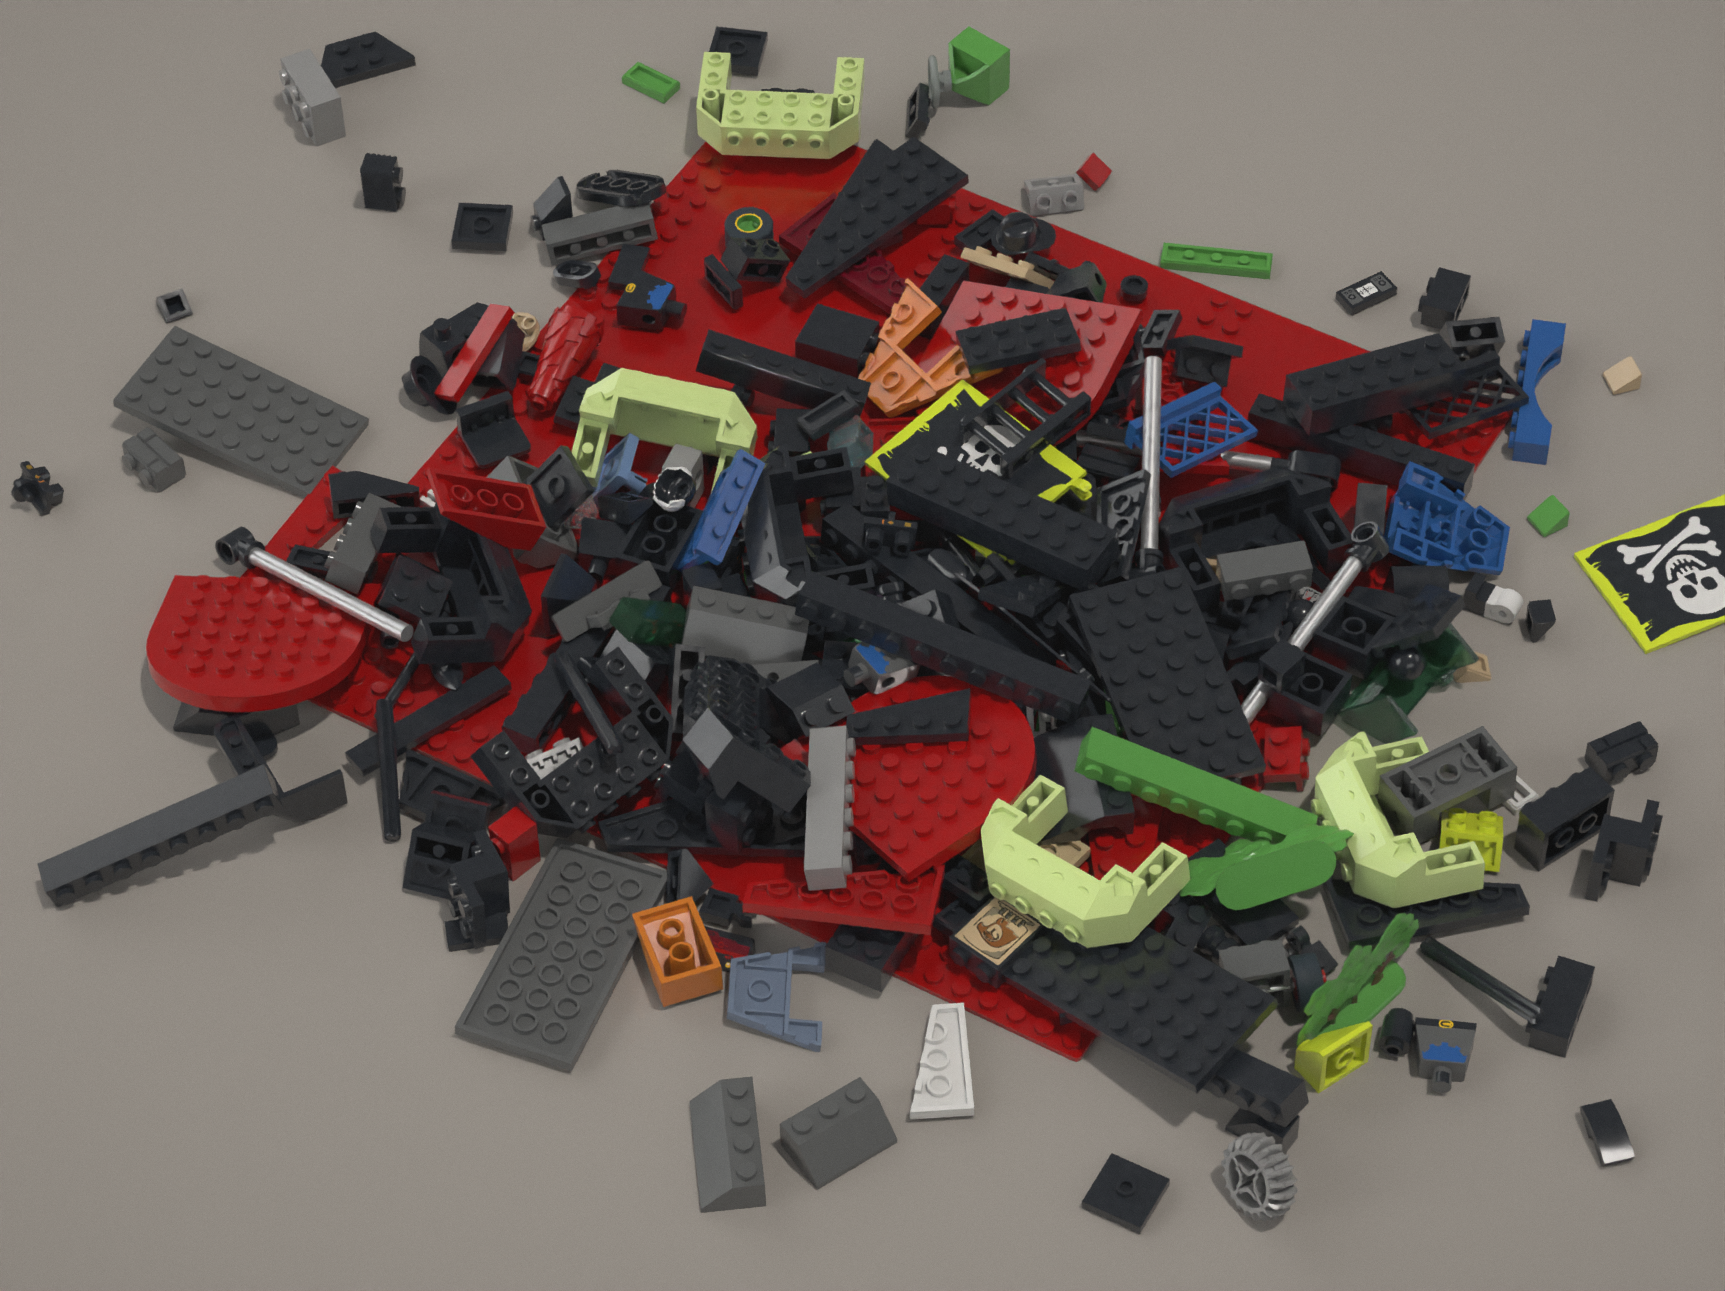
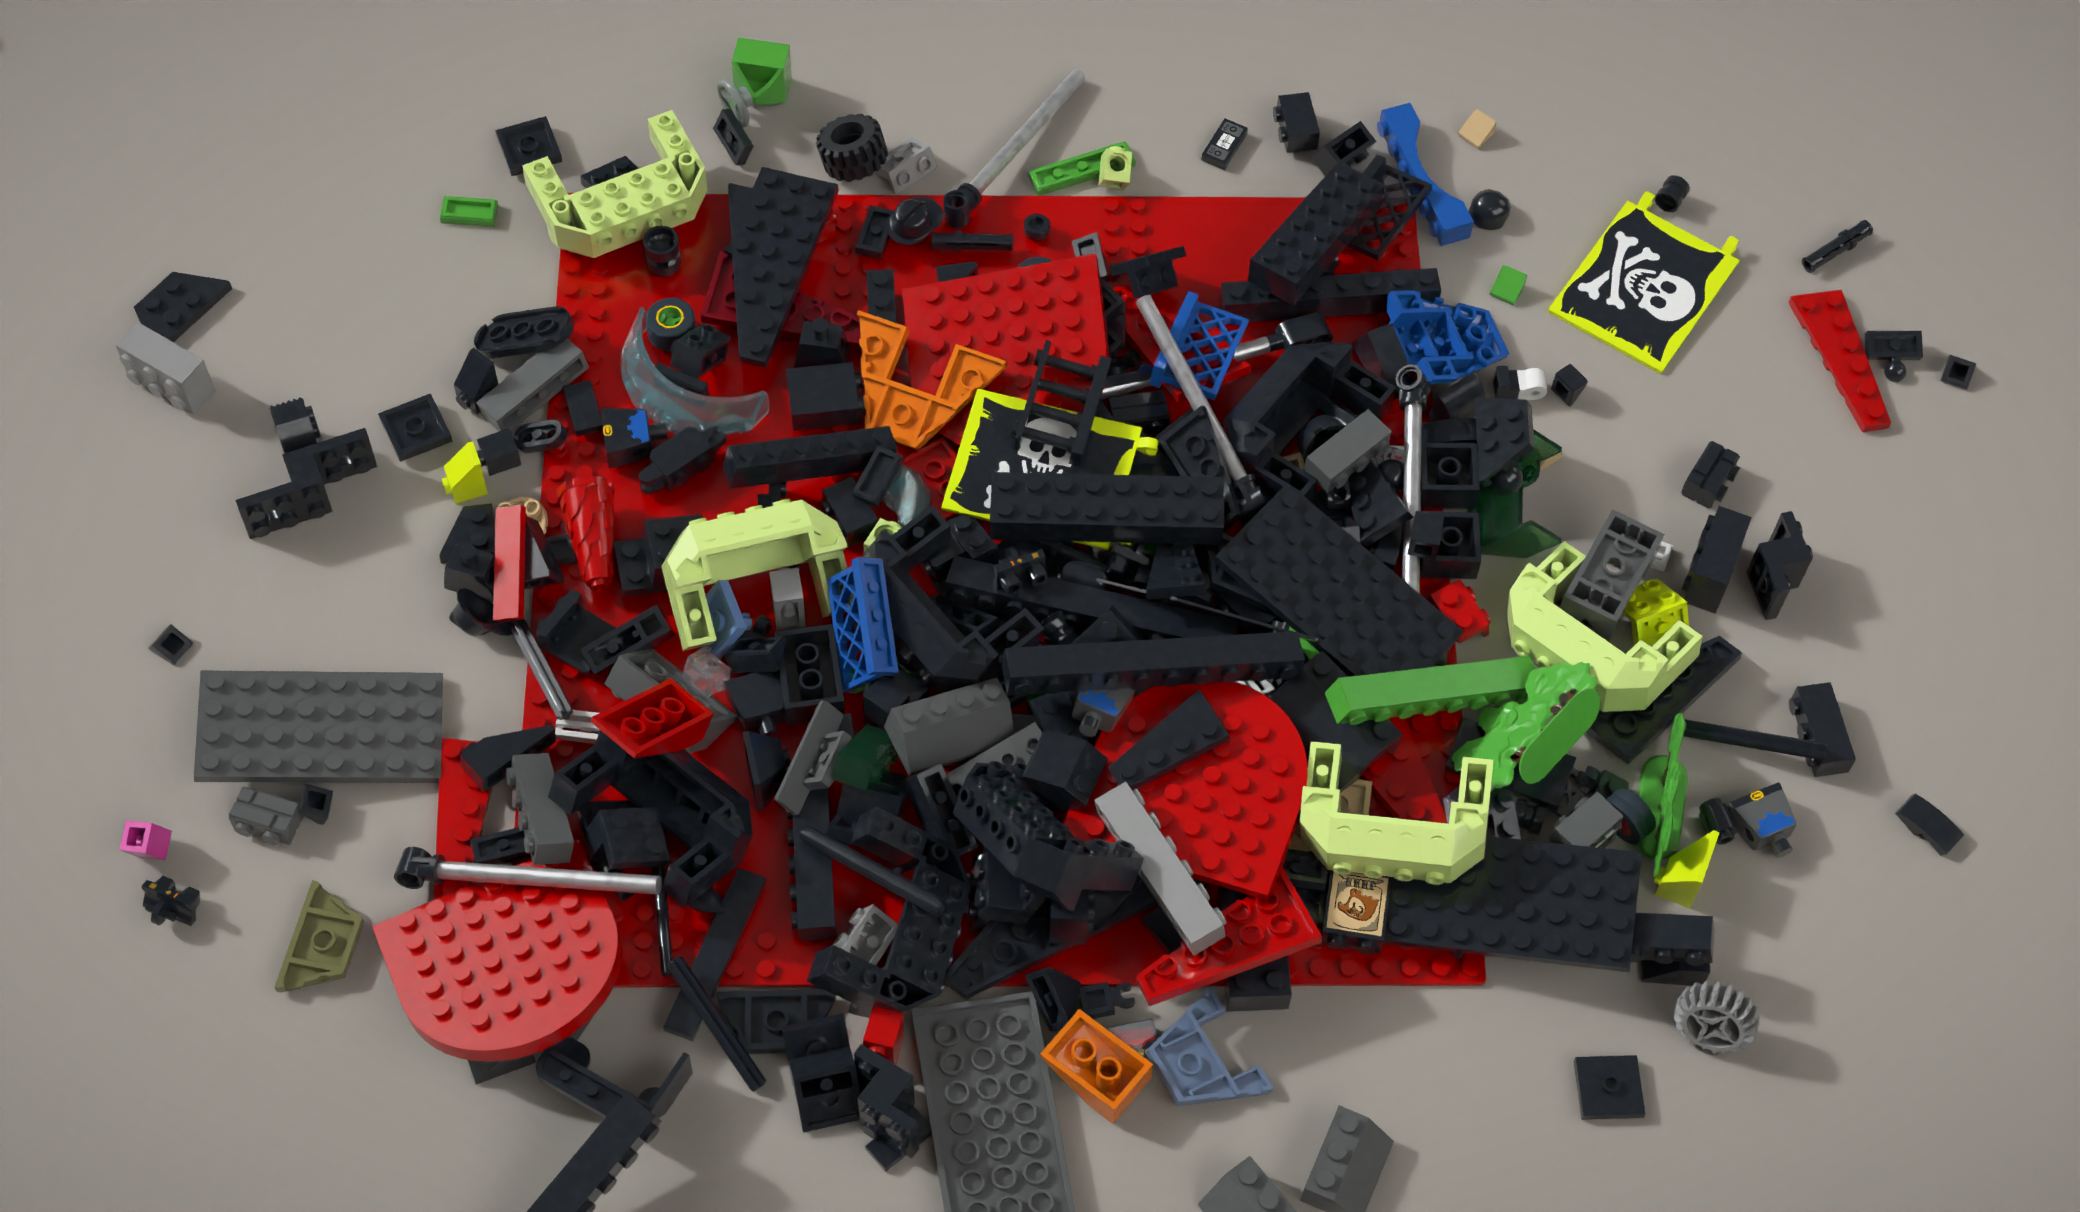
camera: 35 degrees left, 10 degrees up
(48, 433) = (145, 840): none -> dark pink brick
(128, 570) = (321, 942): none -> olive wing
(196, 466) = (315, 803): none -> black slope
(360, 229) = (306, 494): none -> black bracket
(447, 436) = (541, 669): none -> axle
(493, 277) = (464, 475): none -> neon yellow slope
(529, 449) = (637, 634): none -> black slope
(534, 273) = (498, 452): none -> black brick
(559, 486) = (691, 663): black plate -> none
(674, 337) = (681, 458): none -> black hinge
(674, 488) = (800, 617): black hair -> none
(715, 306) = (676, 405): none -> clear light blue windscreen
(783, 172) = (662, 251): none -> black wheel
(864, 296) = (822, 344): none -> black torso
(945, 1070) = (1390, 1054): white wing -> none
(1003, 264) = (919, 256): tan wing -> none
(1012, 157) = (852, 147): none -> black tyre
(1018, 341) = (1008, 331): black plate -> none
(1072, 239) = (961, 202): none -> flat silver piece
(1080, 283) = (1002, 249): black torso -> none
(1094, 171) = (924, 129): red tile -> none
(1241, 279) = (1110, 178): none -> yellowish green brick
(1581, 447) = (1489, 209): none -> black hair

